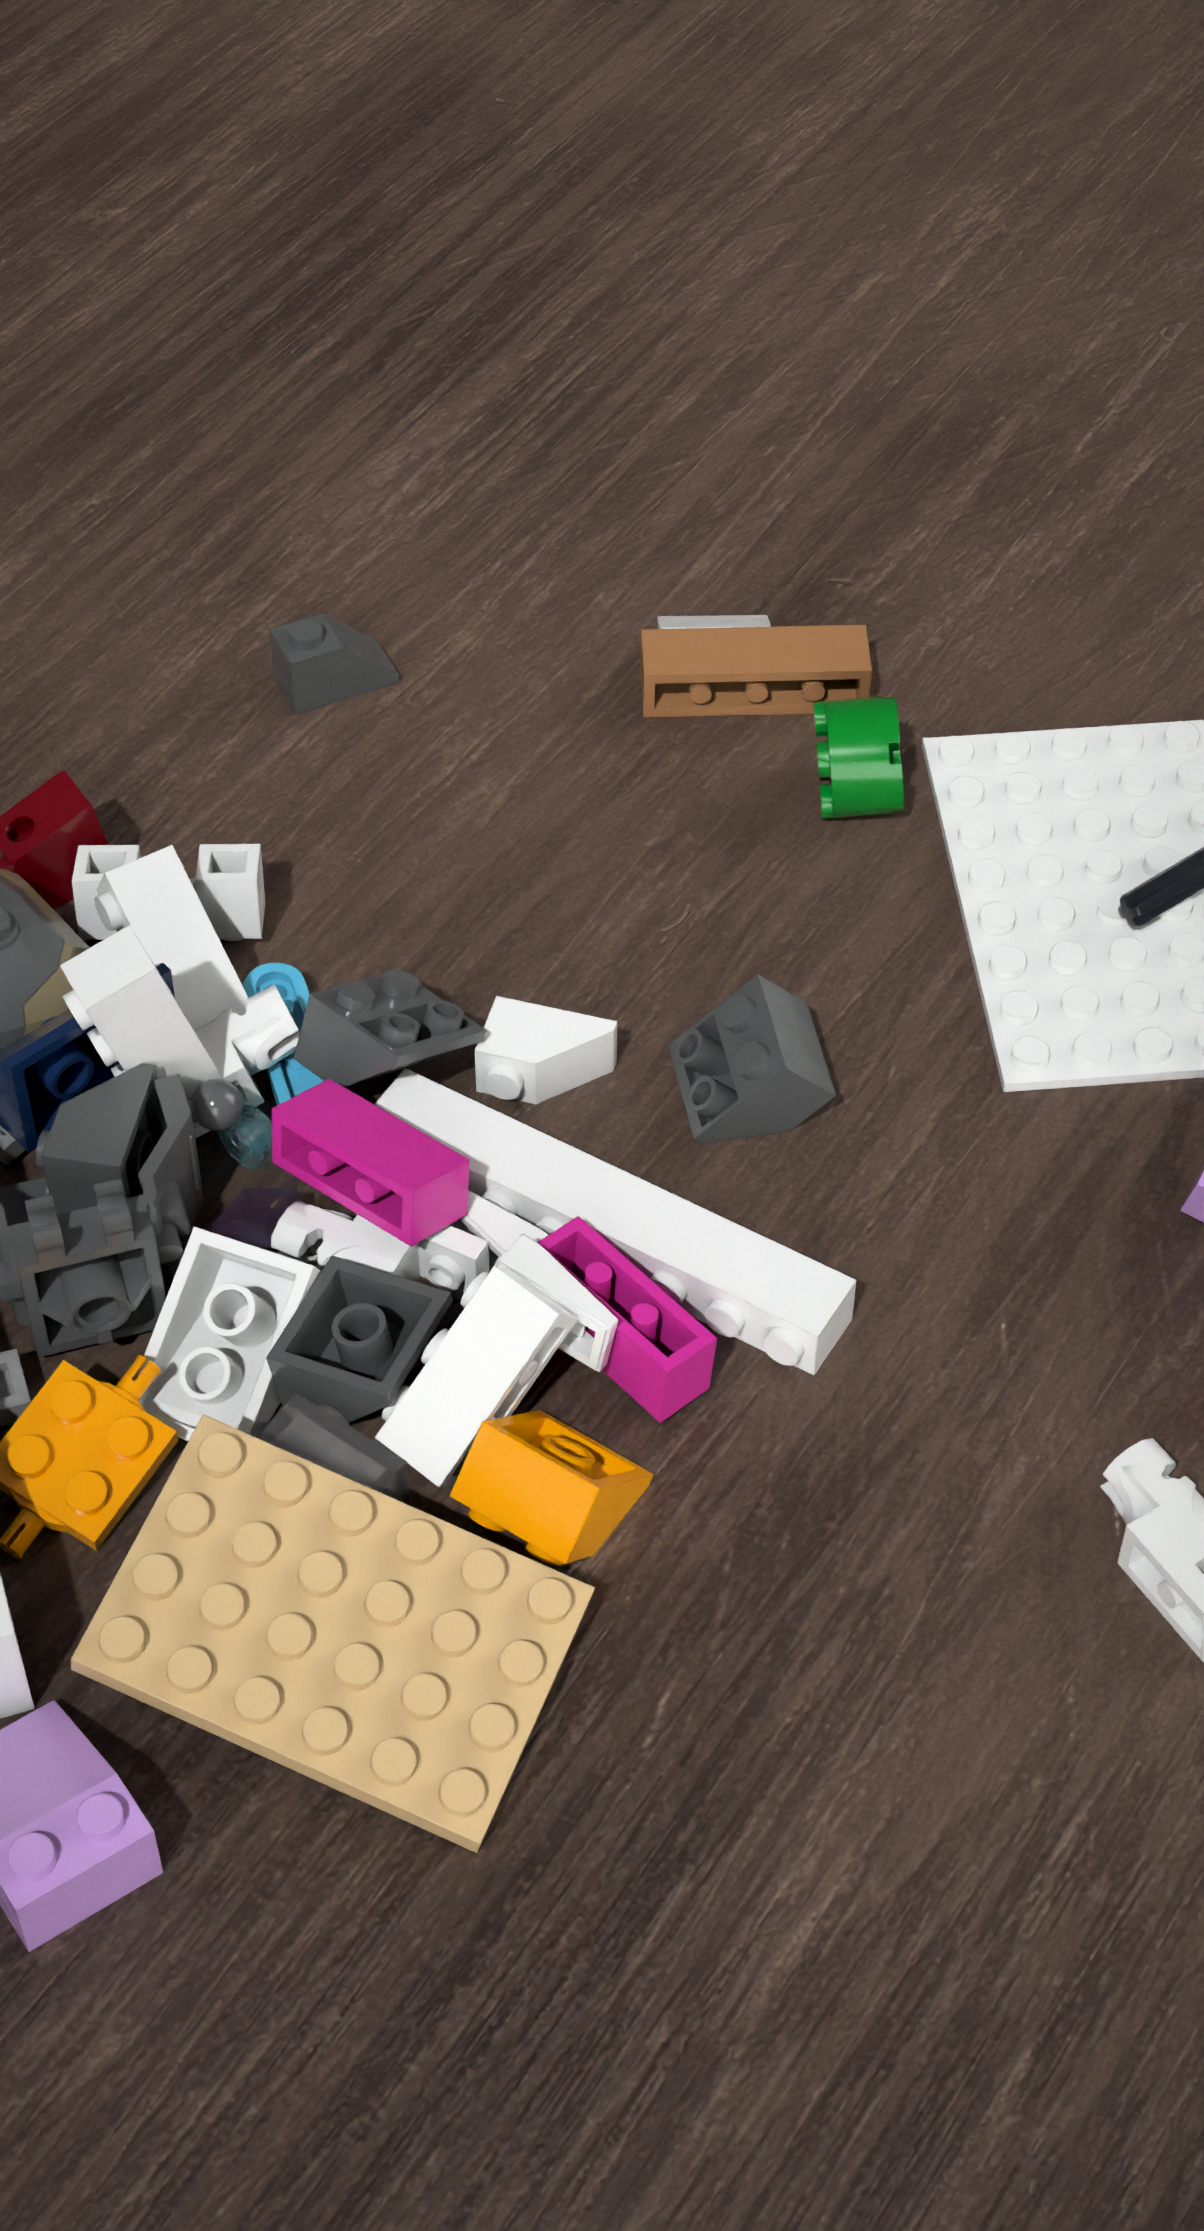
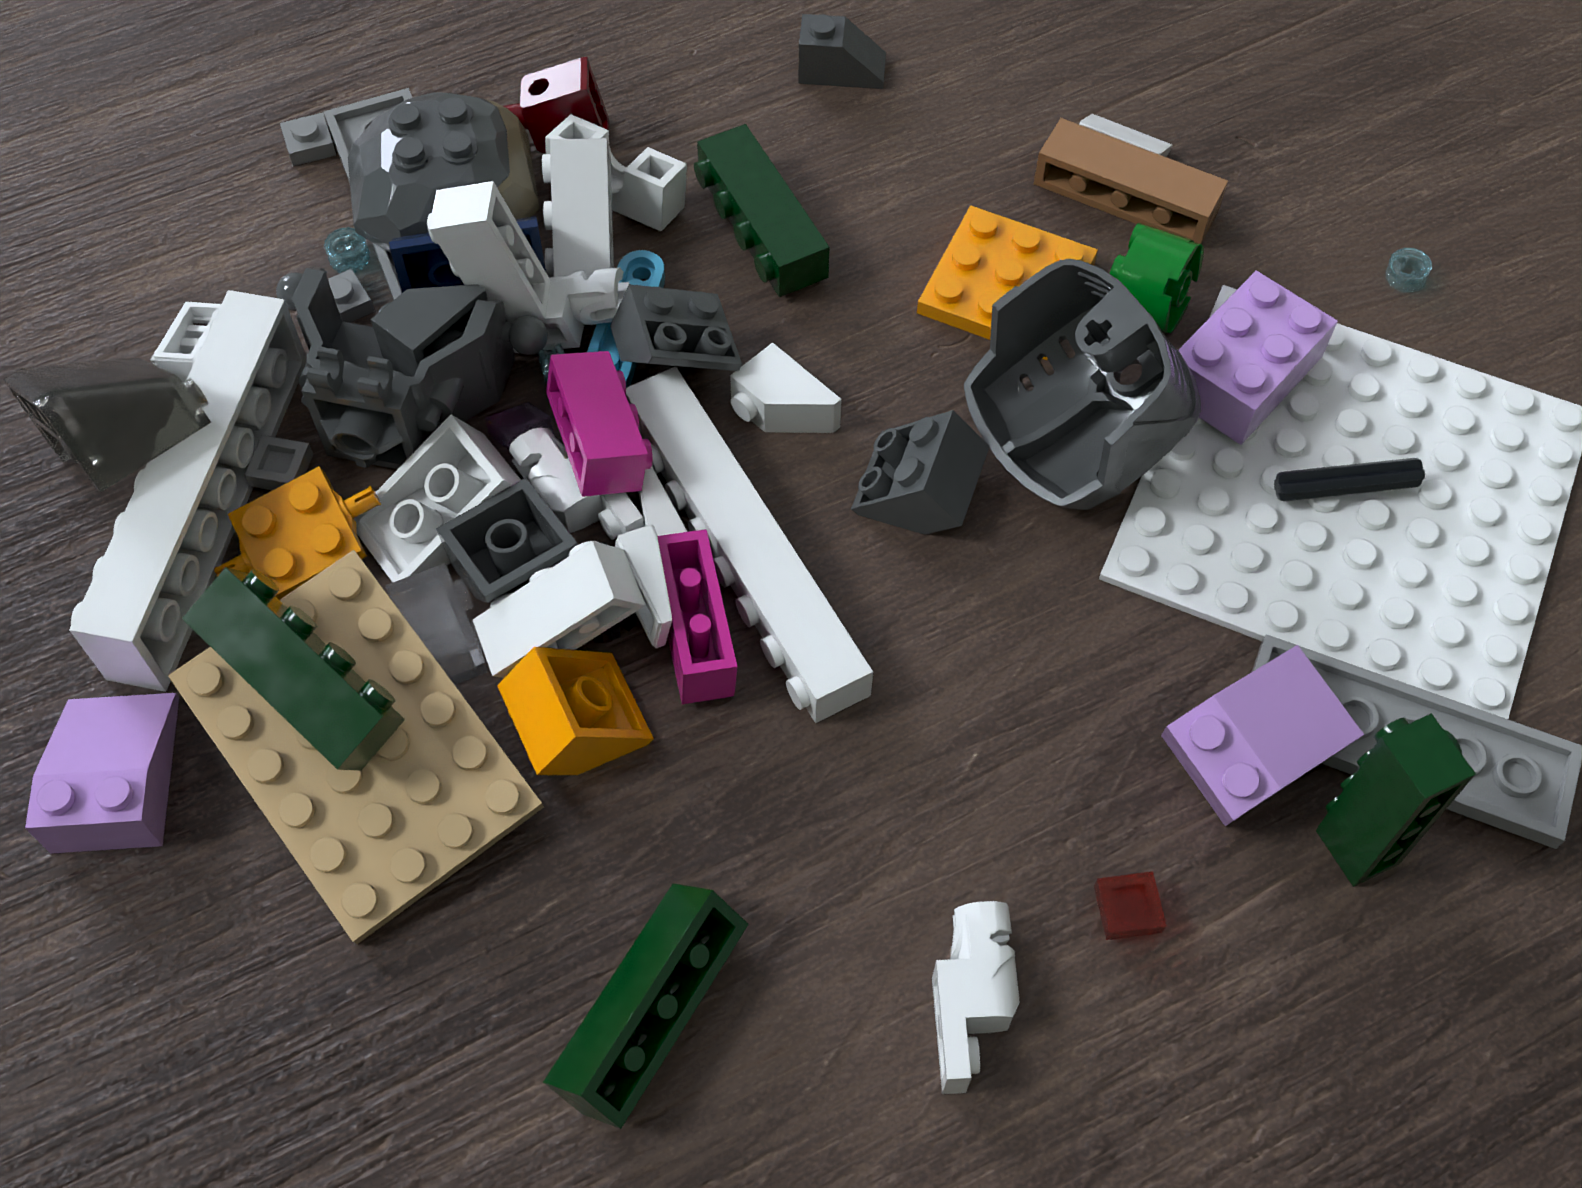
camera: 30 degrees right, 10 degrees up
(241, 1559) = (294, 668): none -> dark green brick
(372, 863) = (762, 210): none -> dark green brick
(693, 830) = (985, 263): none -> light orange plate
(859, 1727) = (646, 1004): none -> dark green brick
(874, 933) = (1079, 429): none -> dark grey piece
(1012, 795) = (1254, 354): none -> lavender brick
(1103, 633) = (1409, 258): none -> clear light blue bush

